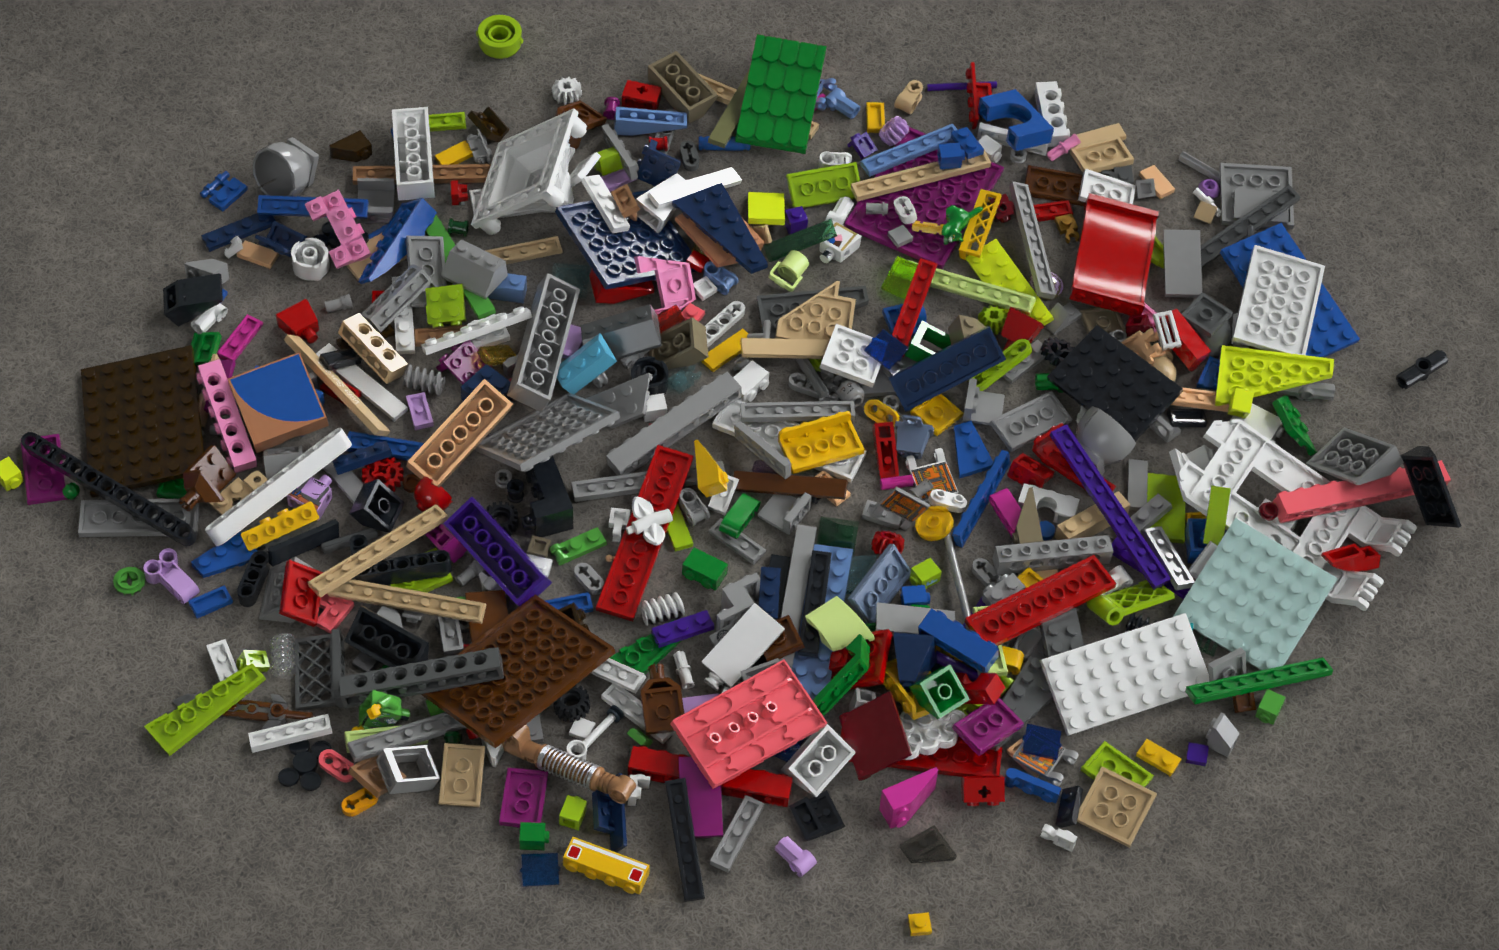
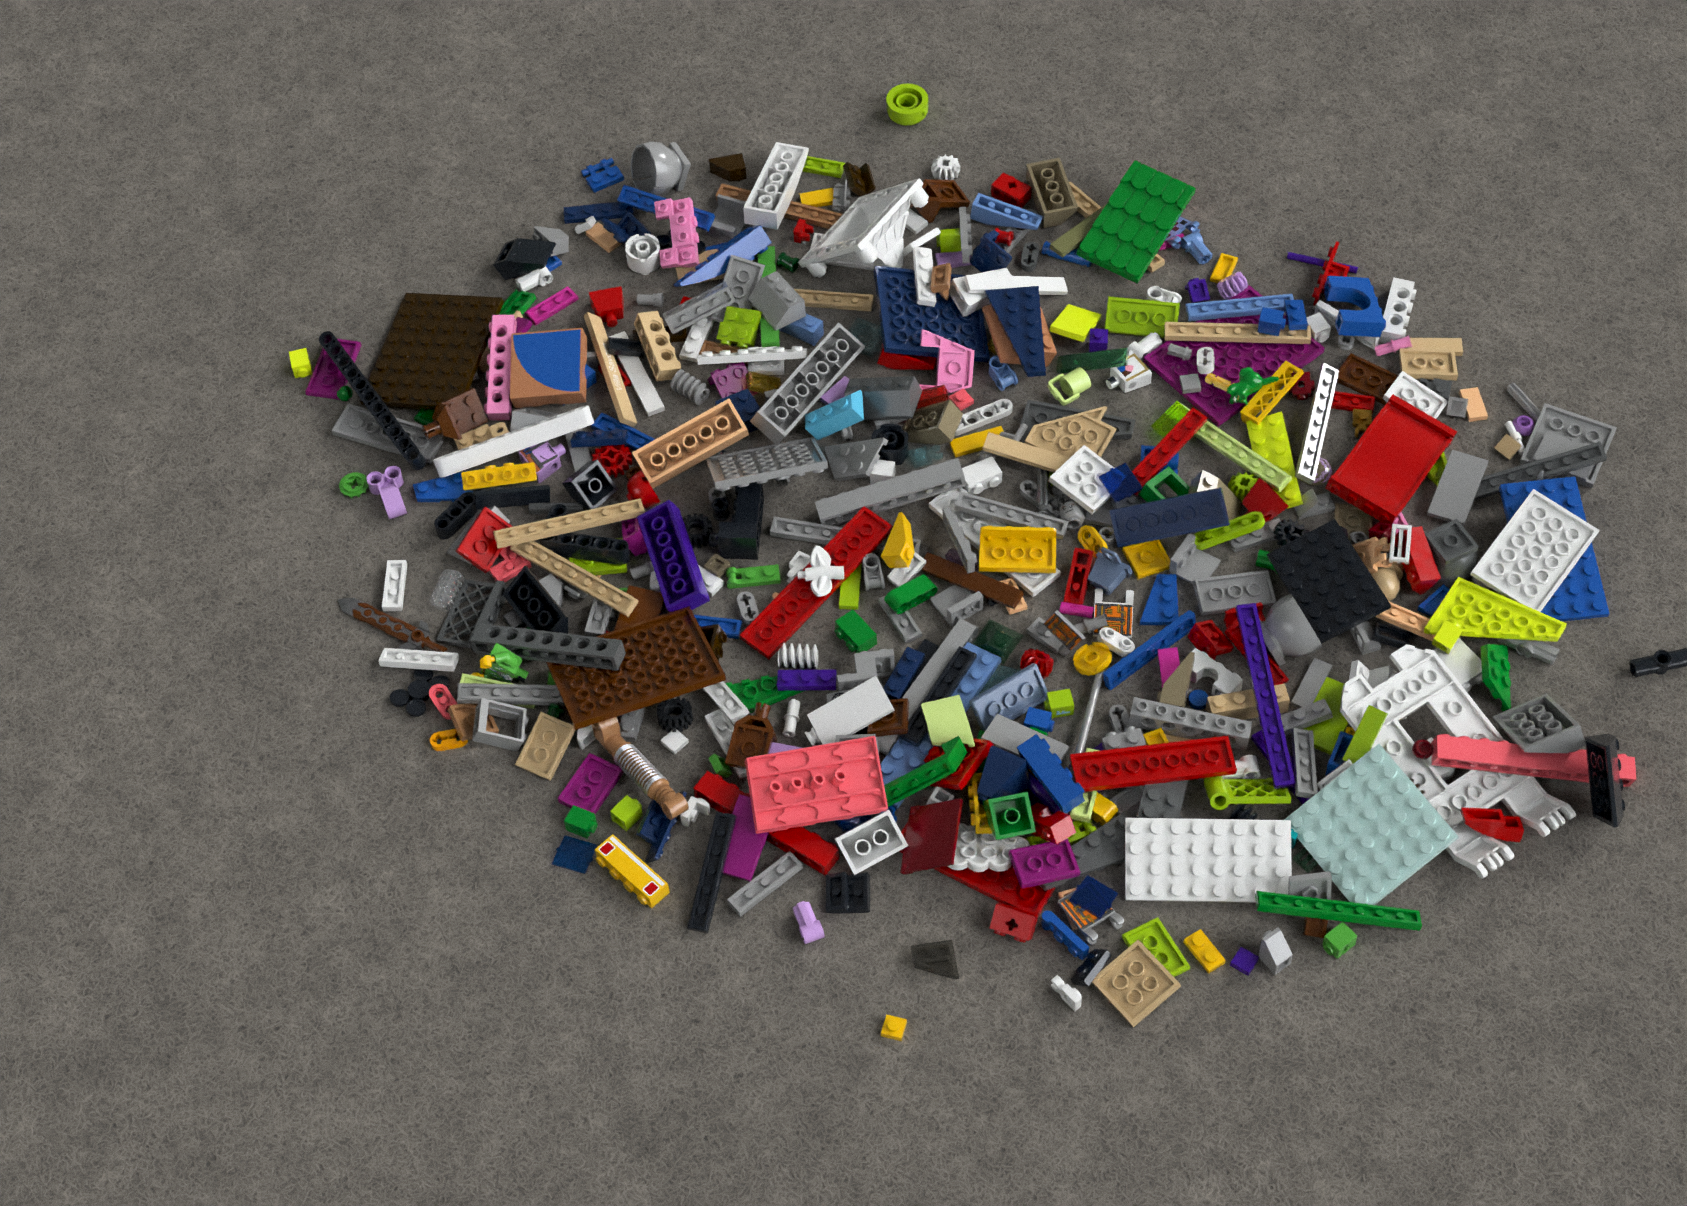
camera: 30 degrees right, 0 degrees up
(183, 724) = (330, 623): lime wing -> none
(210, 602) = (412, 524): blue tile -> none
(257, 657) = (419, 587): lime bracket -> none
(419, 411) = (672, 413): lavender plate -> none
(611, 104) = (979, 188): magenta bush -> none
(614, 714) = (659, 754): white piece -> none
(697, 261) = (985, 352): red tile -> none
(704, 288) = (983, 379): white plate -> none
(763, 232) = (1060, 344): tan tile -> none
(904, 799) = (937, 904): dark pink slope -> none
(909, 97) = (1264, 259): tan piece -> none

